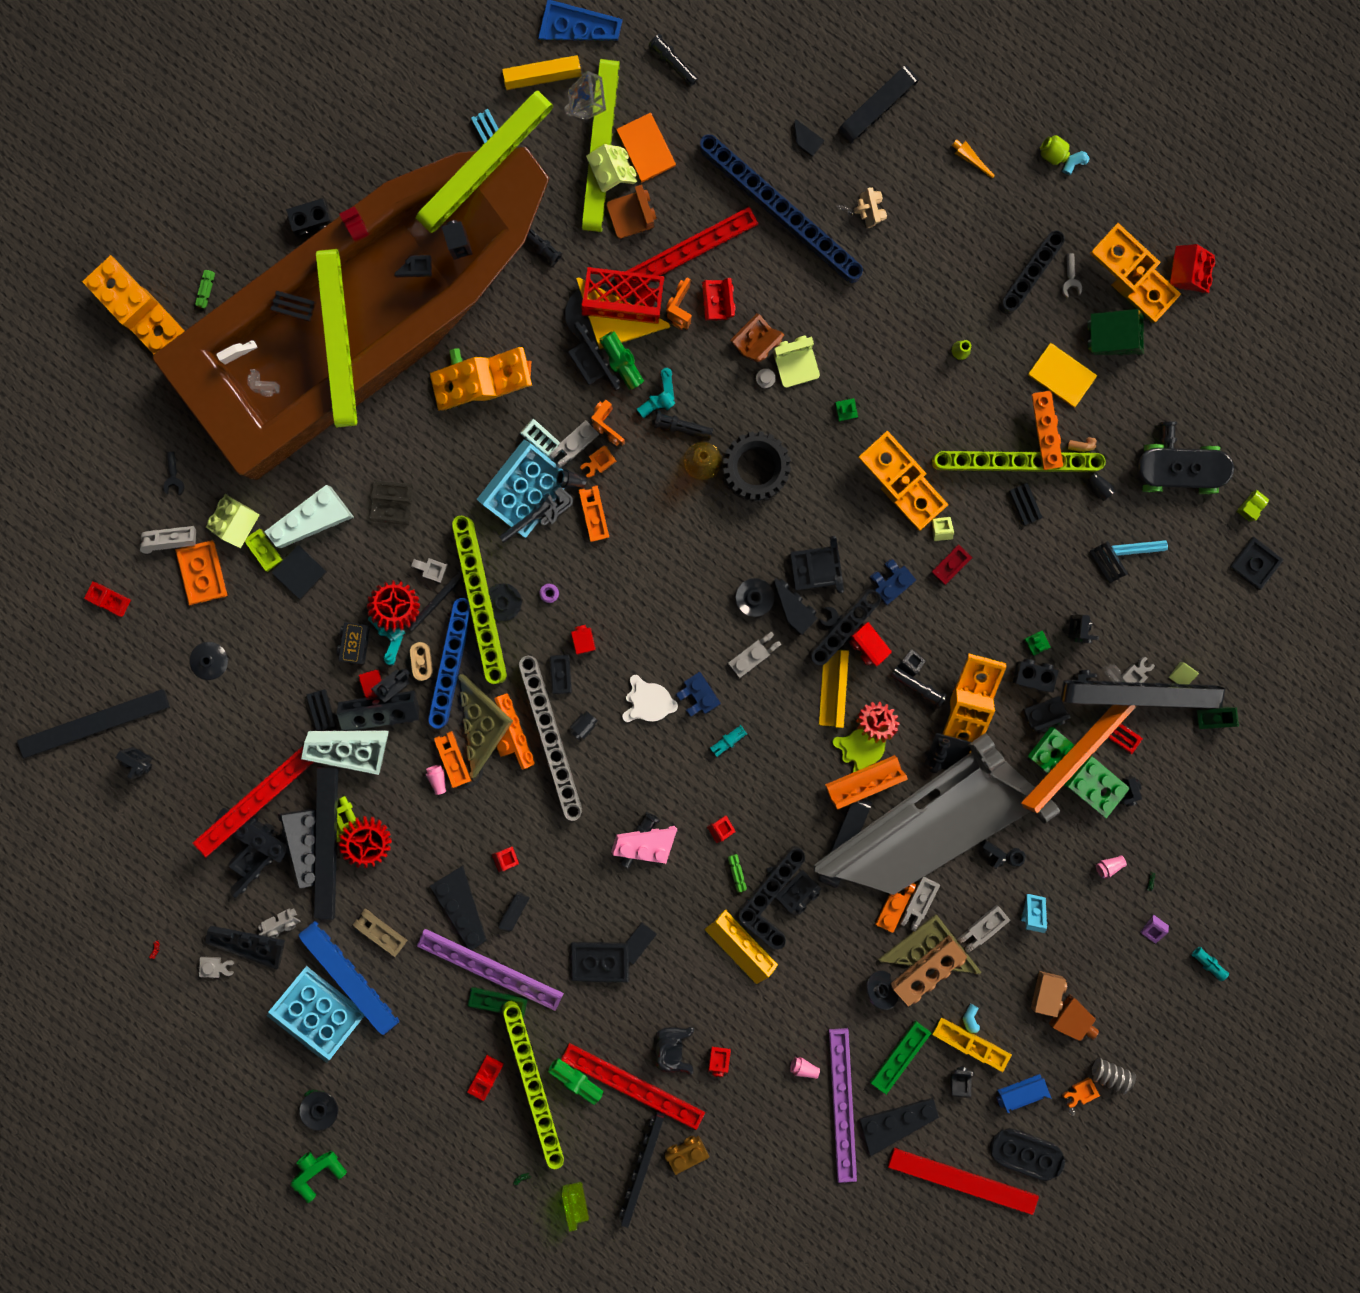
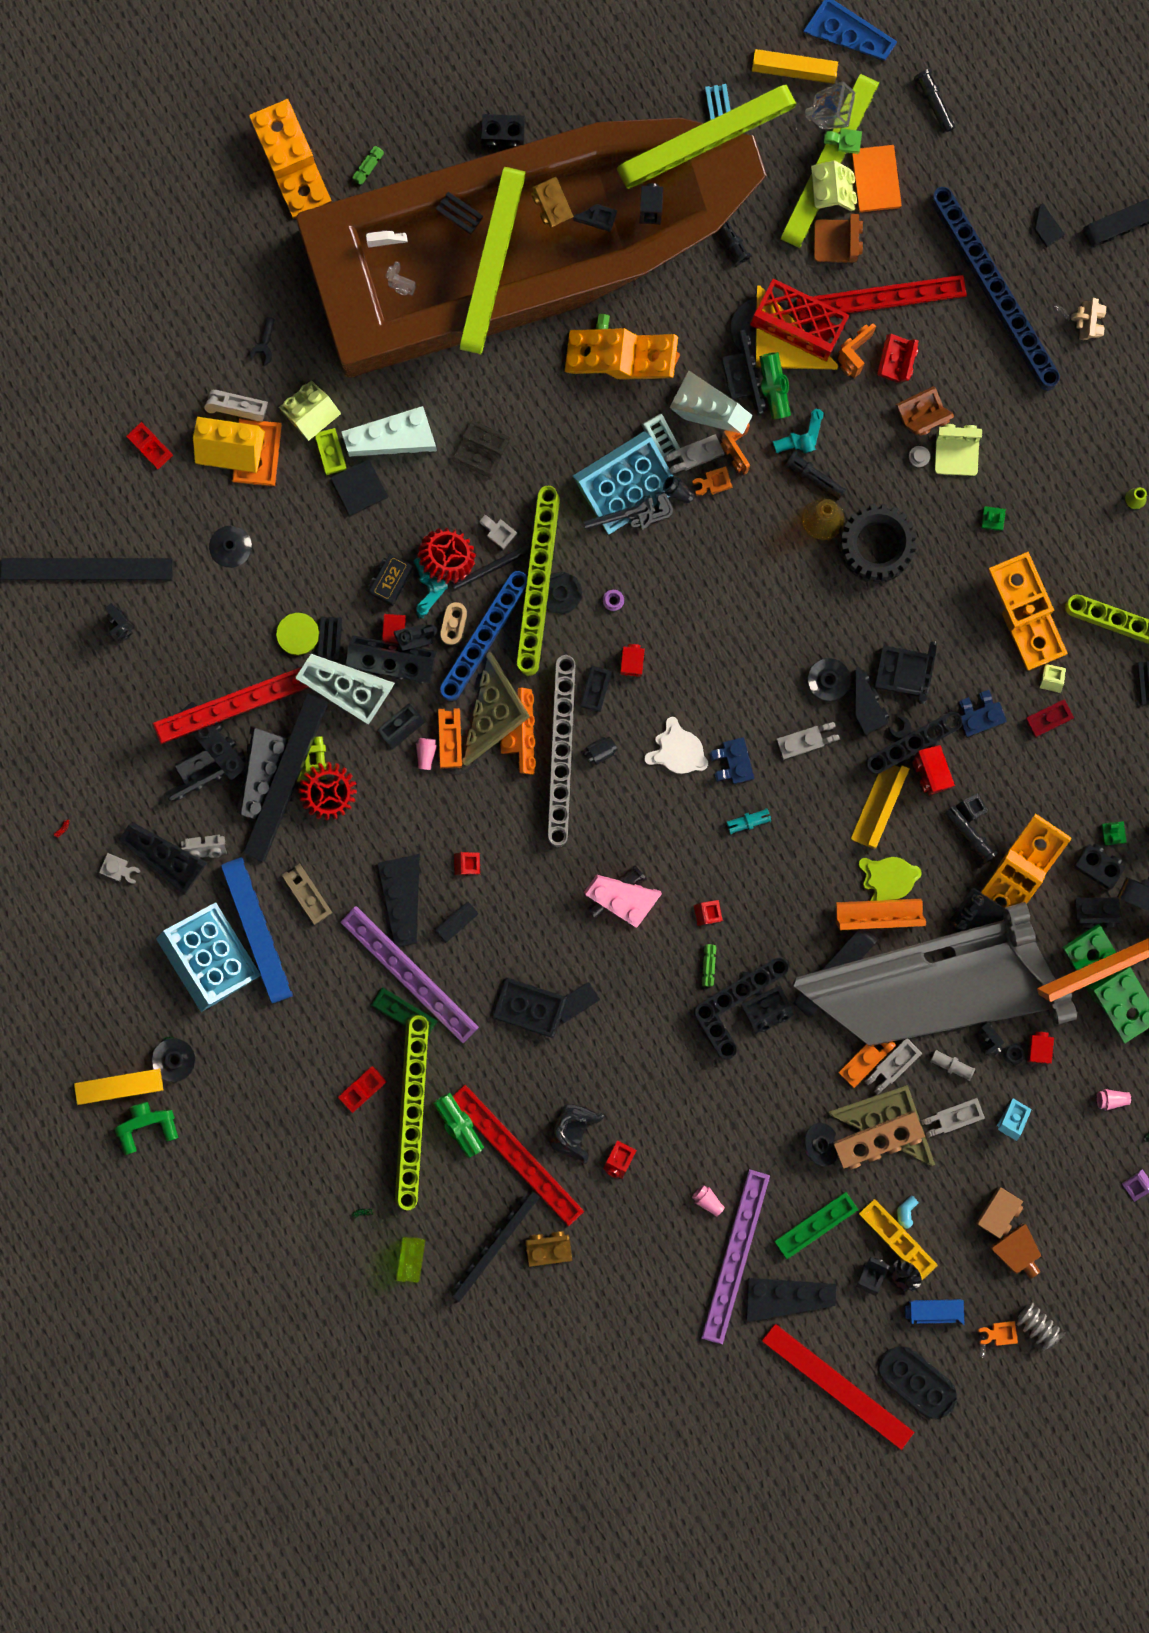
camera: 20 degrees right, 5 degrees down
(172, 576) = (227, 444): none -> yellow slope
(281, 1149) = (118, 1086): none -> yellow slope
(292, 716) = (297, 634): none -> lime tile
(354, 224) = (552, 153): dark red leg -> none
(371, 268) = (552, 202): none -> pearl gold bracket
(408, 763) = (401, 726): none -> black slope
(569, 399) = (708, 406): none -> light aqua wedge
(594, 514) = (689, 535): orange plate -> none
(609, 123) = (847, 141): none -> bright green plate
(741, 947) = (685, 1046): yellow panel -> none
(887, 724) = (914, 855): red gear -> none
(968, 885) = (952, 1065): none -> light grey pin
(988, 1073) = (906, 1269): none -> black gear
(1037, 846) = (1040, 1048): none -> red brick

